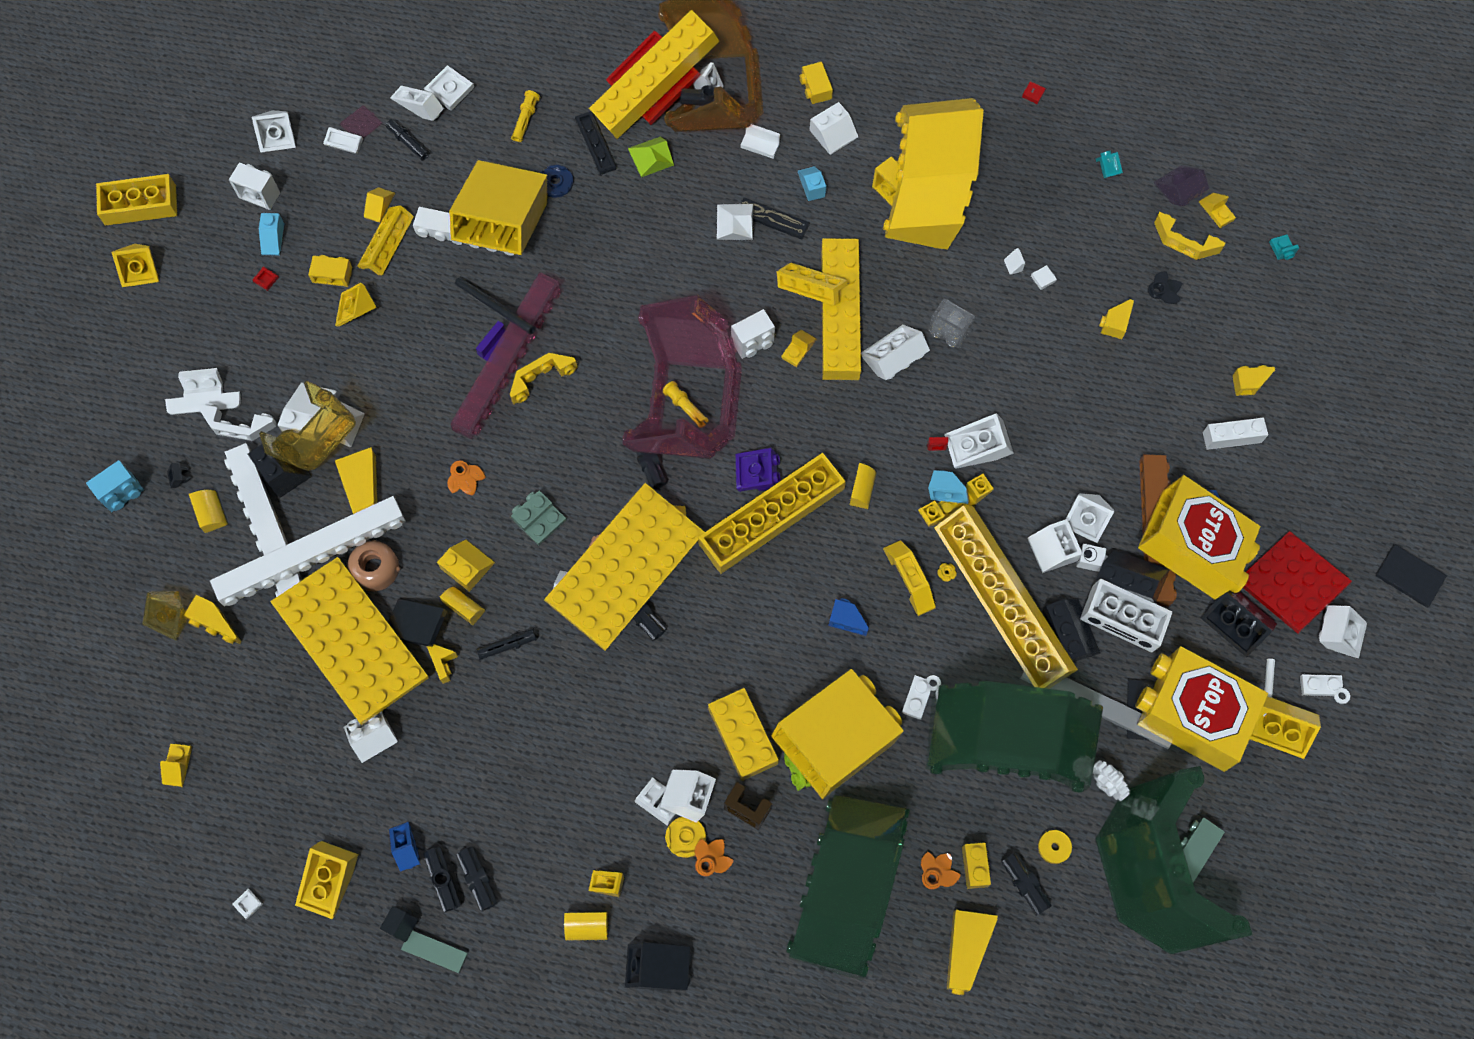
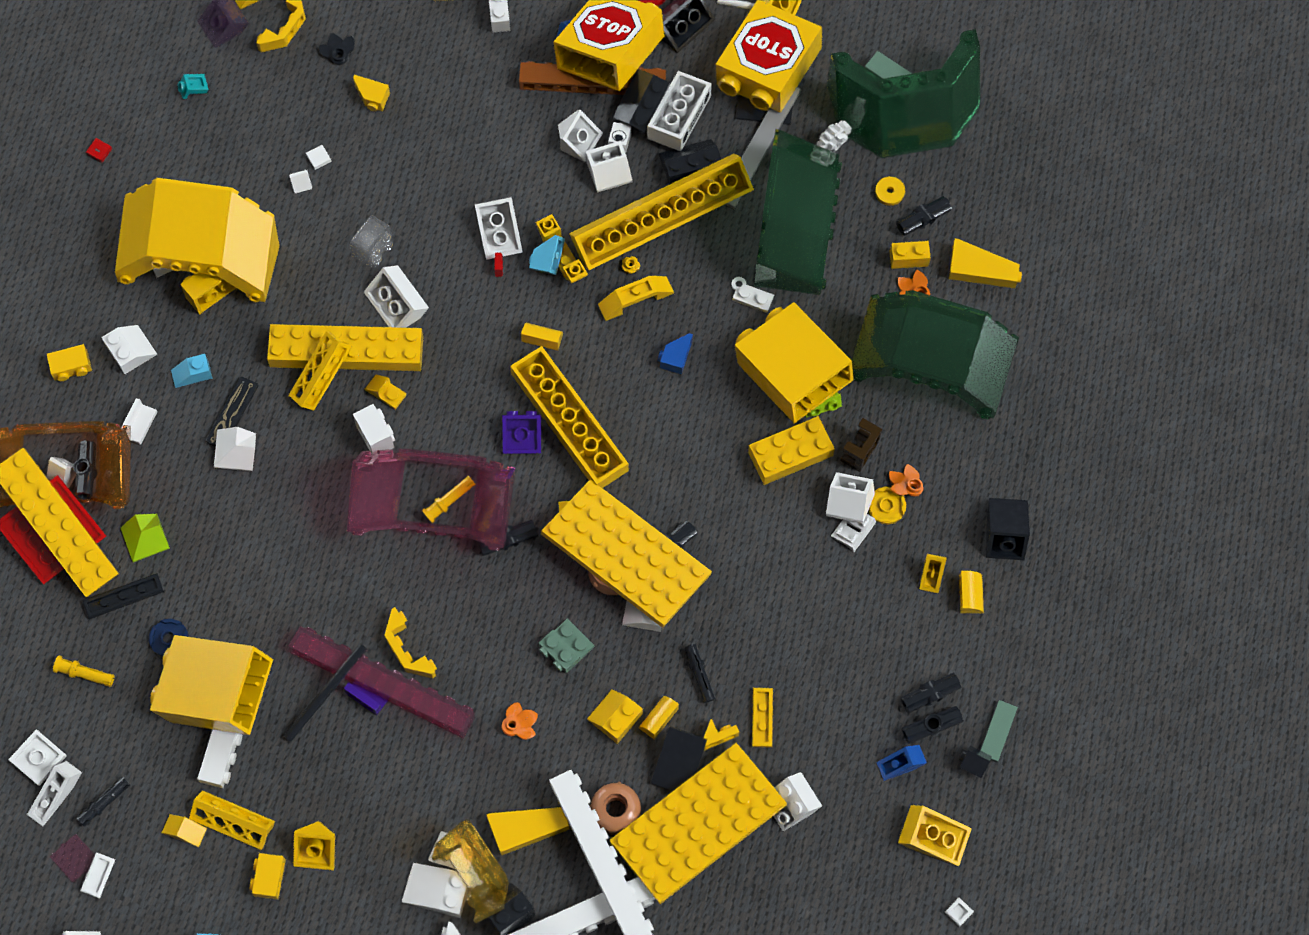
camera: 90 degrees left, 0 degrees up
(459, 706) = (762, 717): none -> yellow tile

